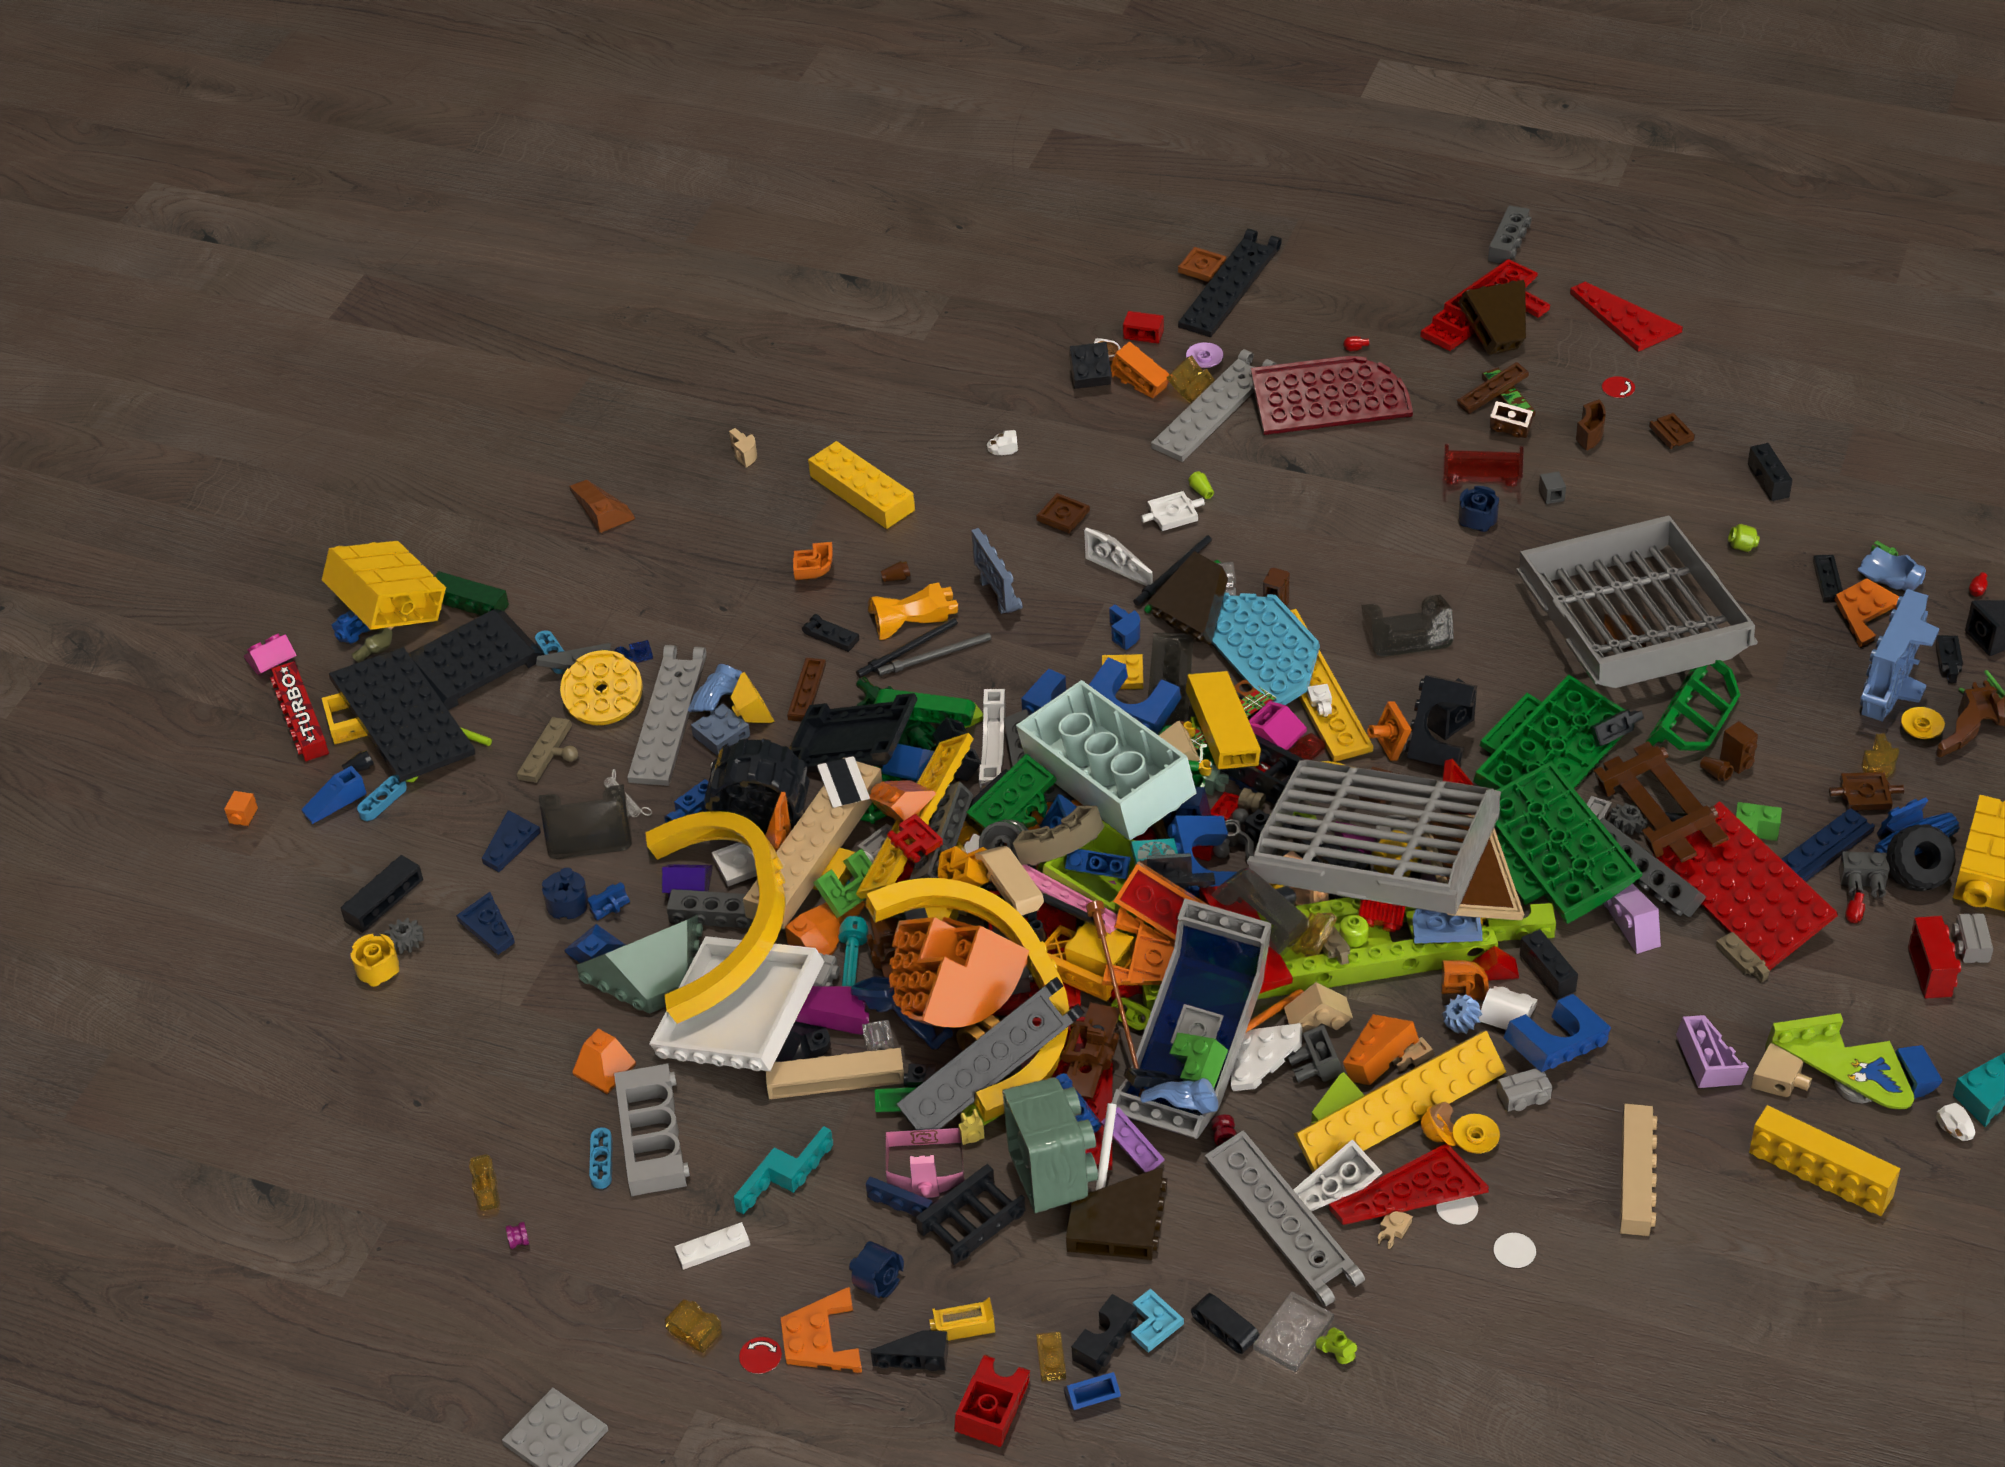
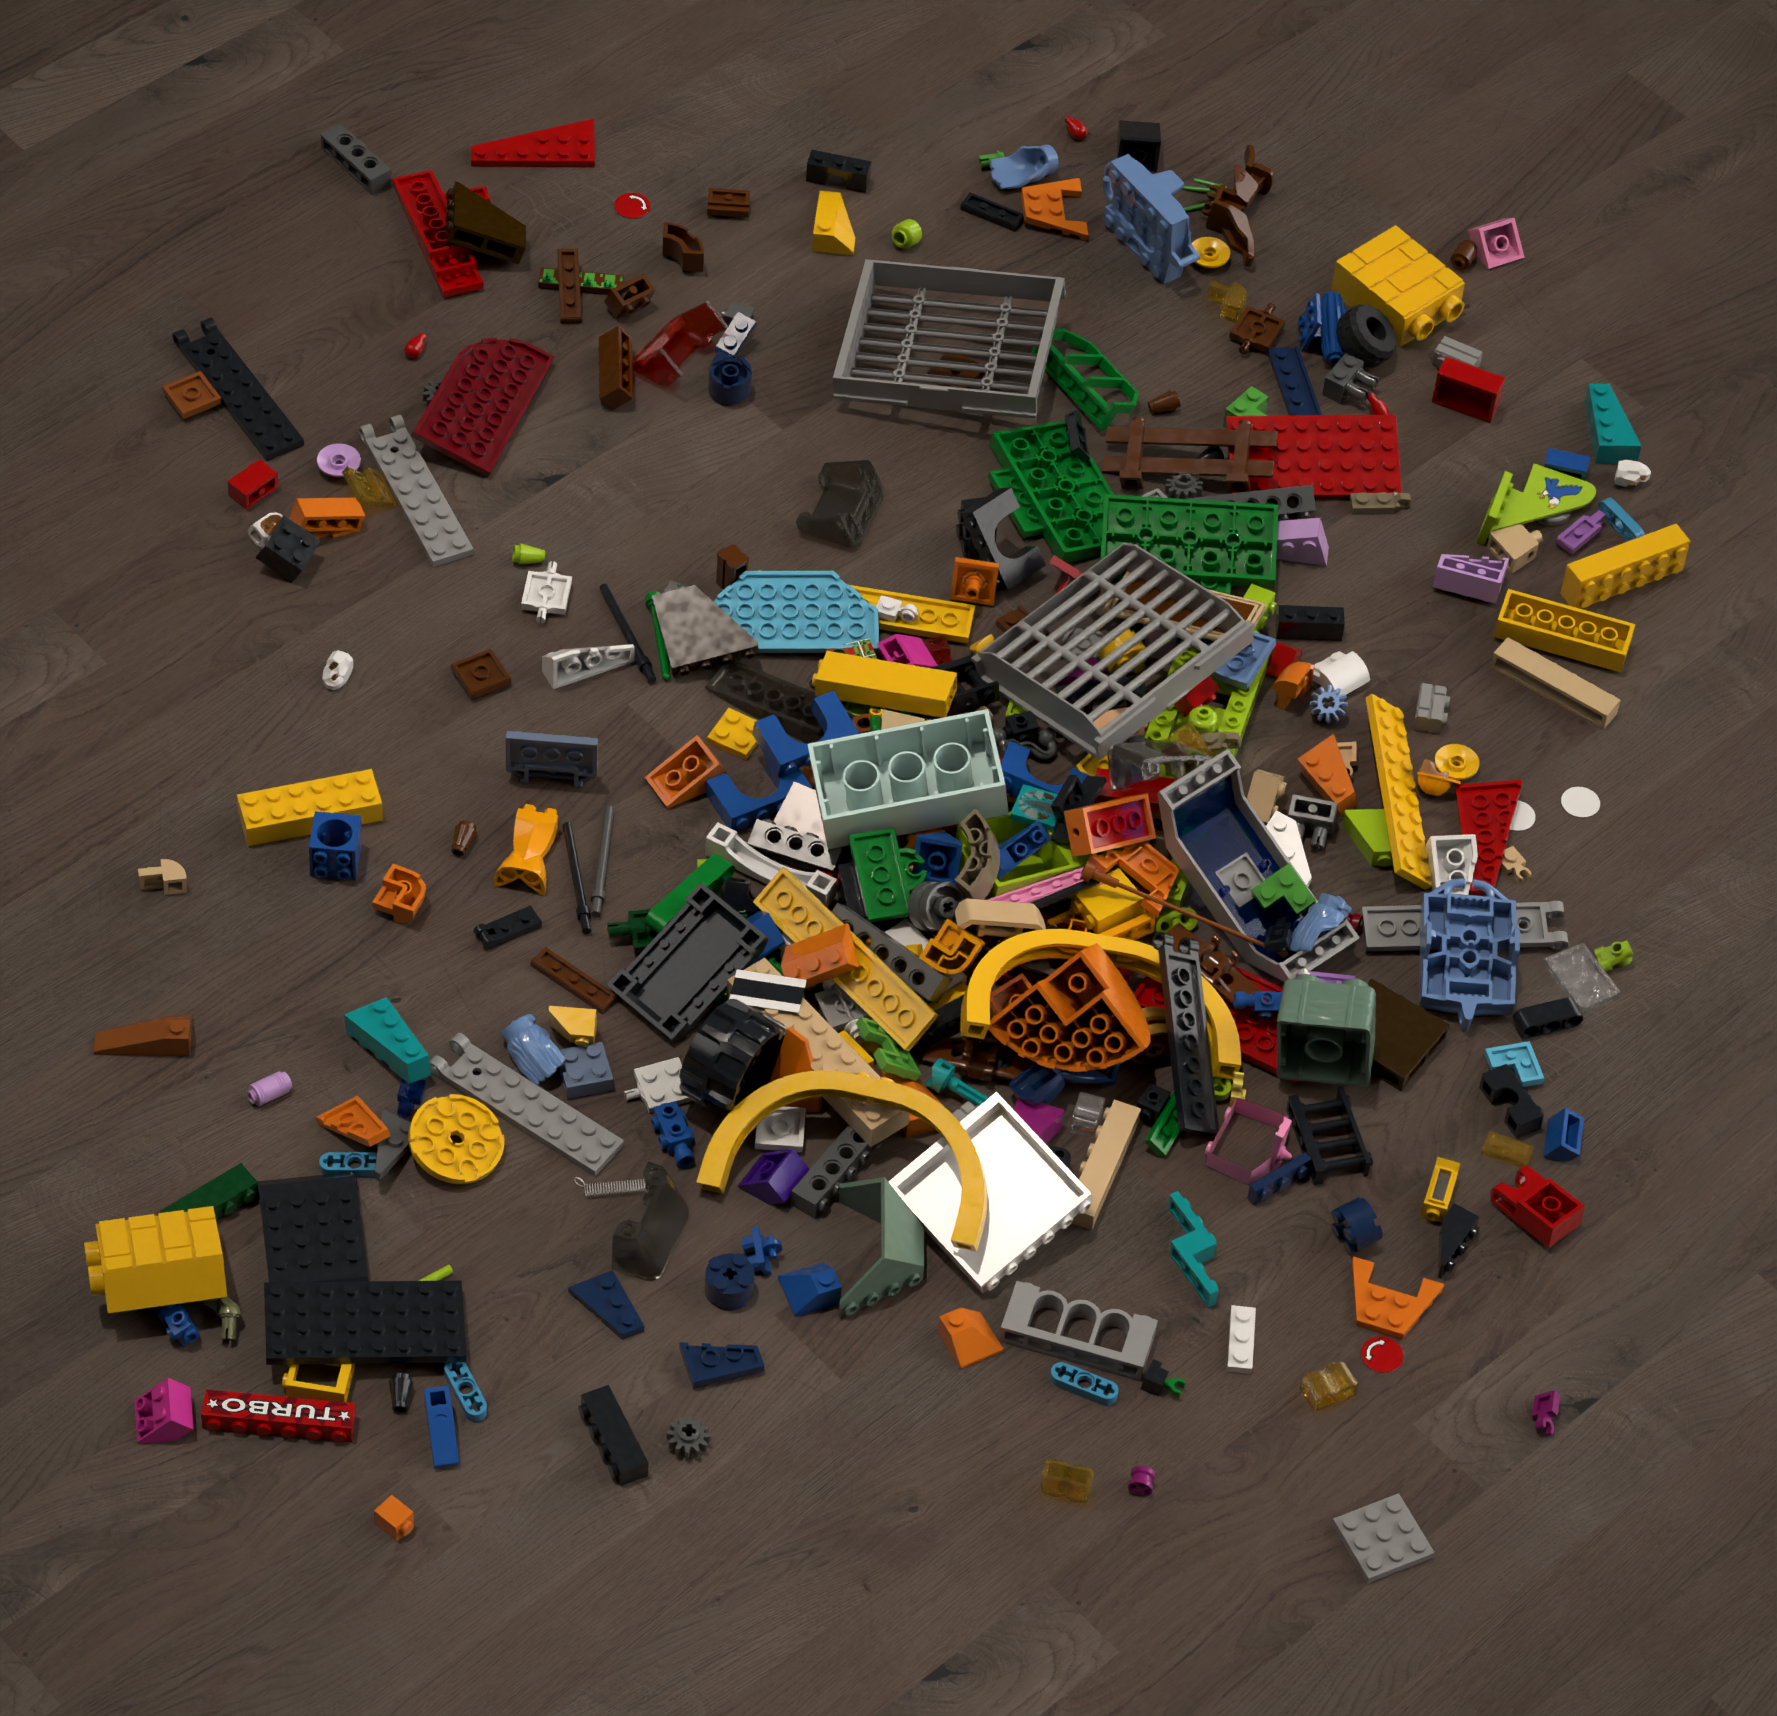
camera: 70 degrees left, 5 degrees up
(374, 959) = (710, 1470): yellow brick -> none
(546, 748) = (501, 1225): dark tan plate -> none
(584, 632) = (355, 1121): none -> orange wing
(590, 579) = (269, 1088): none -> lavender head
(630, 1202) = (1157, 1378): none -> black piece
(671, 614) = (389, 1038): none -> teal wedge
(829, 509) = (335, 845): none -> blue brick
(920, 835) = (898, 957): red plate -> none
(1062, 656) = (685, 773): none -> orange slope
(1125, 627) = (685, 698): blue brick -> none
(1228, 1201) = (1491, 931): none -> medium blue piece
(1429, 444) = (615, 368): none -> reddish brown brick
(1523, 491) = (735, 336): none -> hinge
(1549, 1051) = (1398, 637): blue arch -> none
(1704, 1148) = (1564, 630): none -> yellow brick
(1706, 495) = (832, 226): none -> yellow wedge
(1739, 746) = (1161, 373): reddish brown brick -> none
(1848, 1115) = (1580, 532): none -> medium lavender hinge
(1890, 1136) = (1620, 520): none -> dark azure beam

